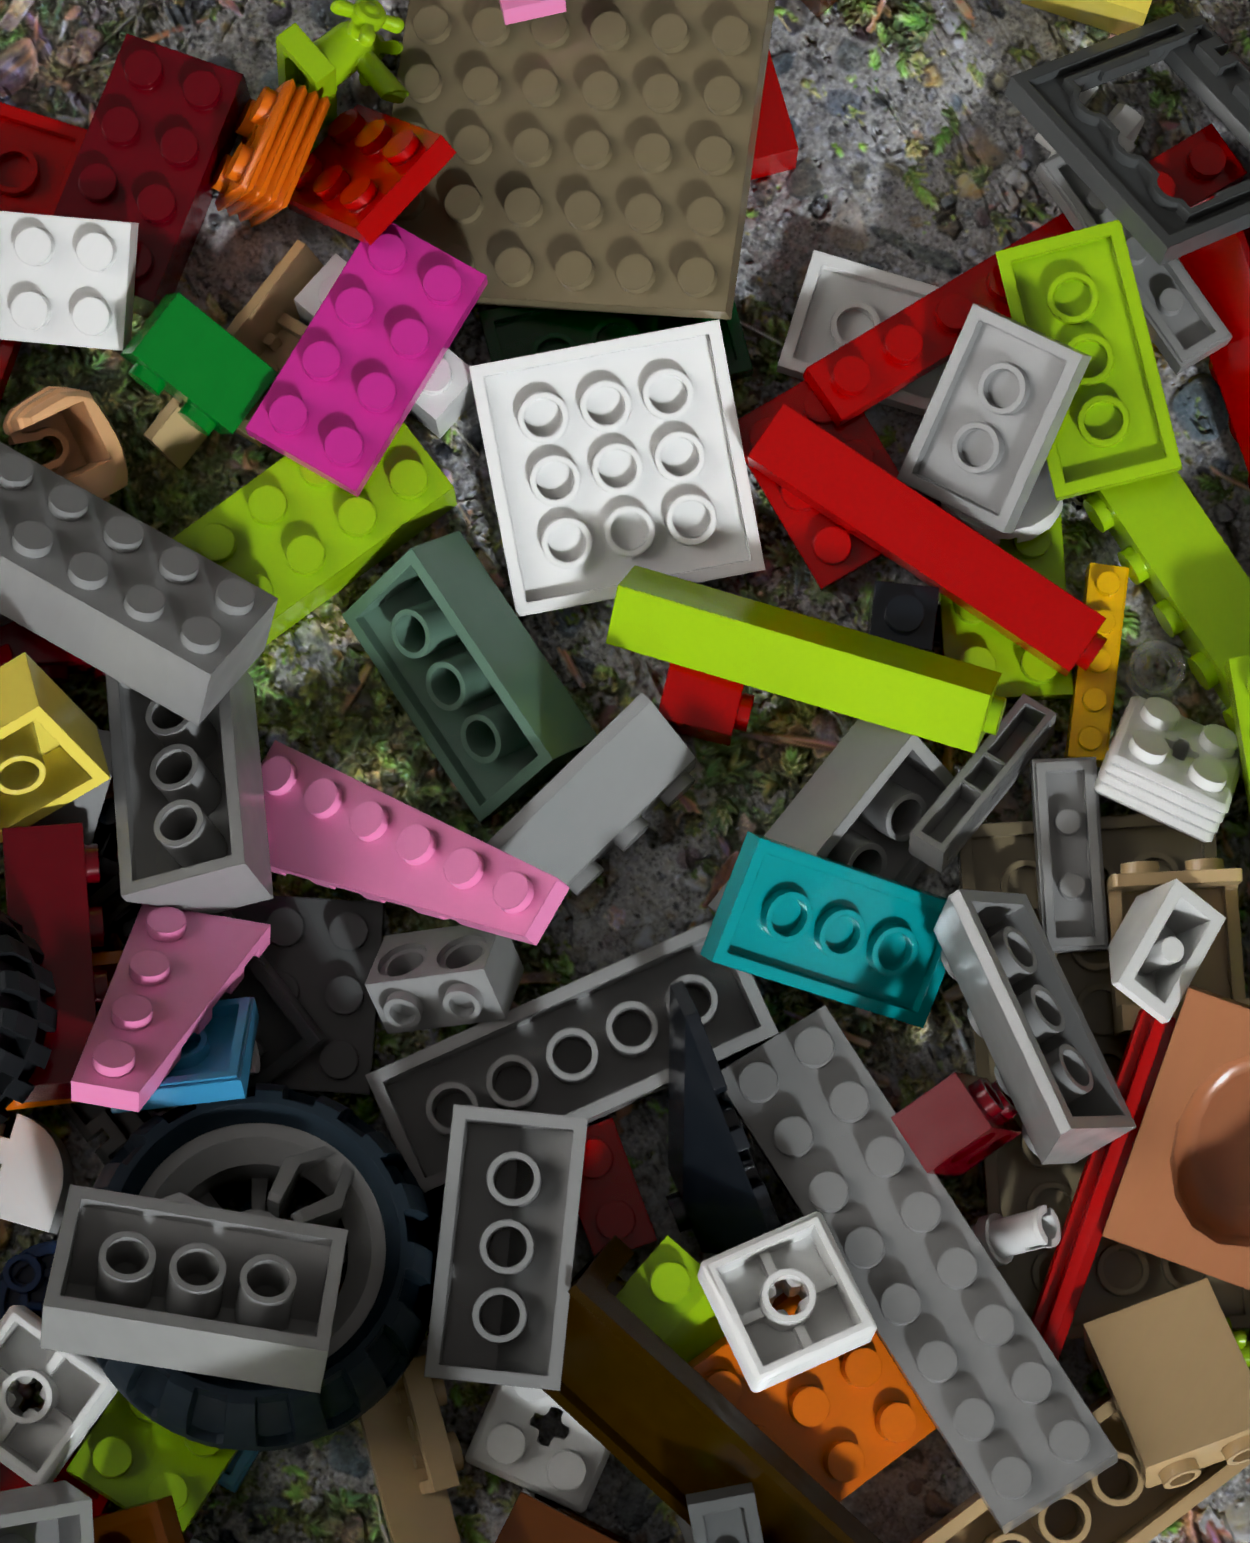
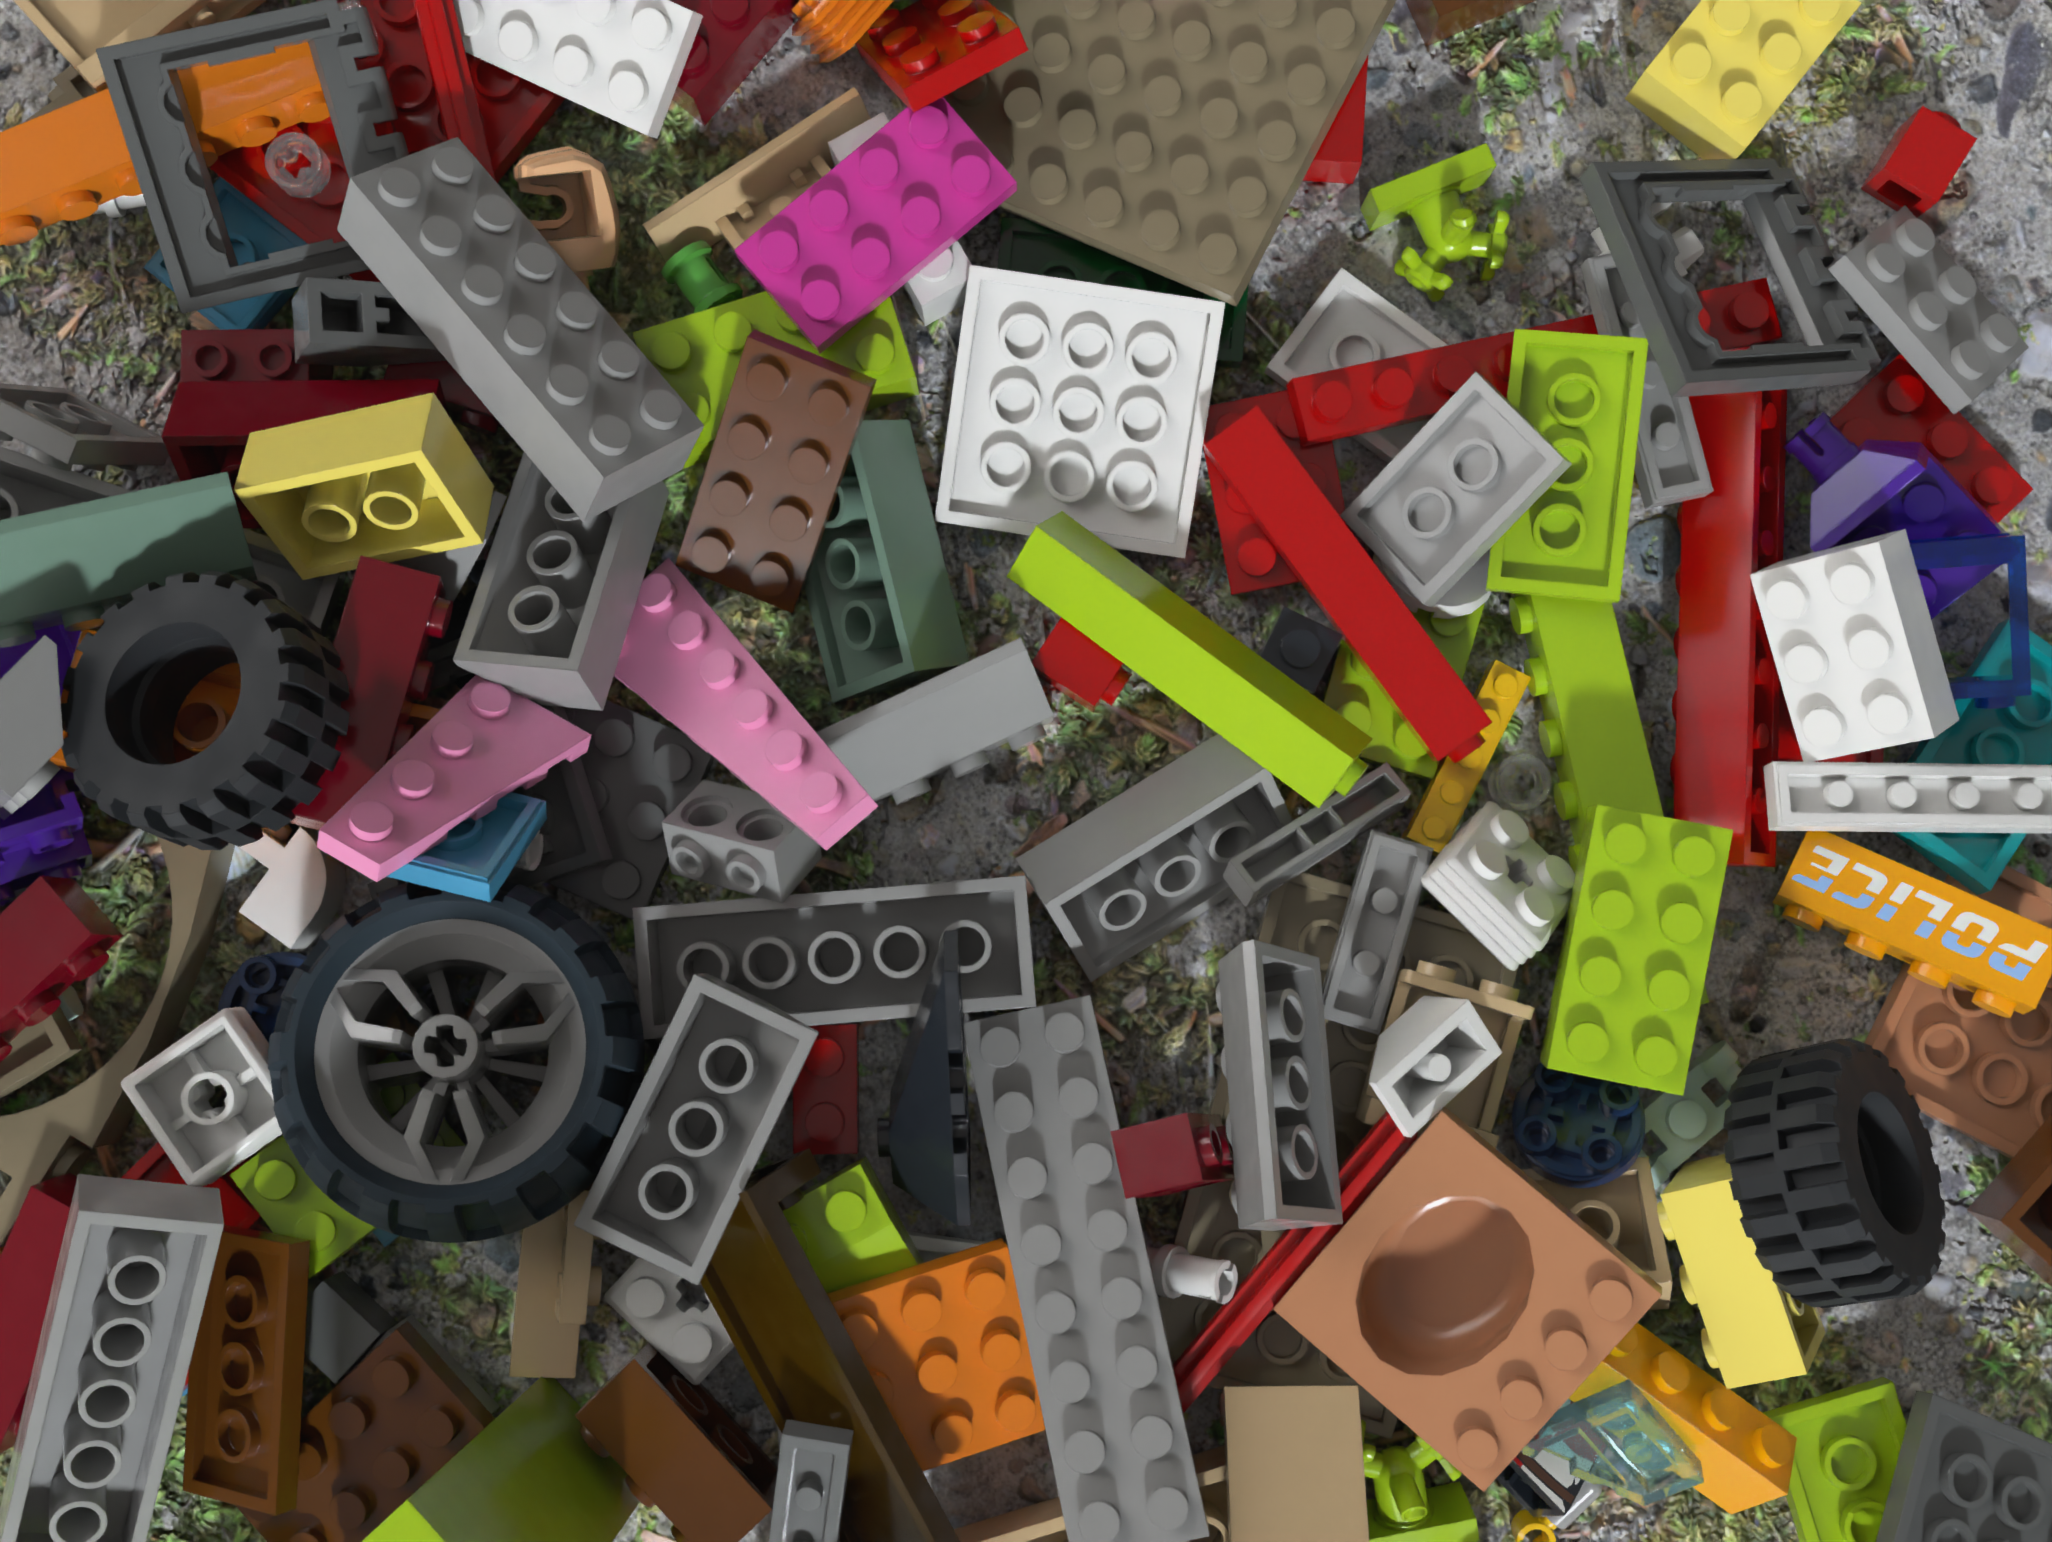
camera: 20 degrees right, 5 degrees up
(193, 1288) = (360, 1075): light grey slope -> none
(197, 365) = (712, 173): green brick -> none
(214, 468) = (700, 277): none -> bright green bush
(353, 622) = (774, 470): none -> reddish brown plate
(801, 1262) = (974, 1237): white brick -> none
(829, 930) = (1118, 926): teal plate -> none
(891, 174) = (1443, 223): none -> lime piece

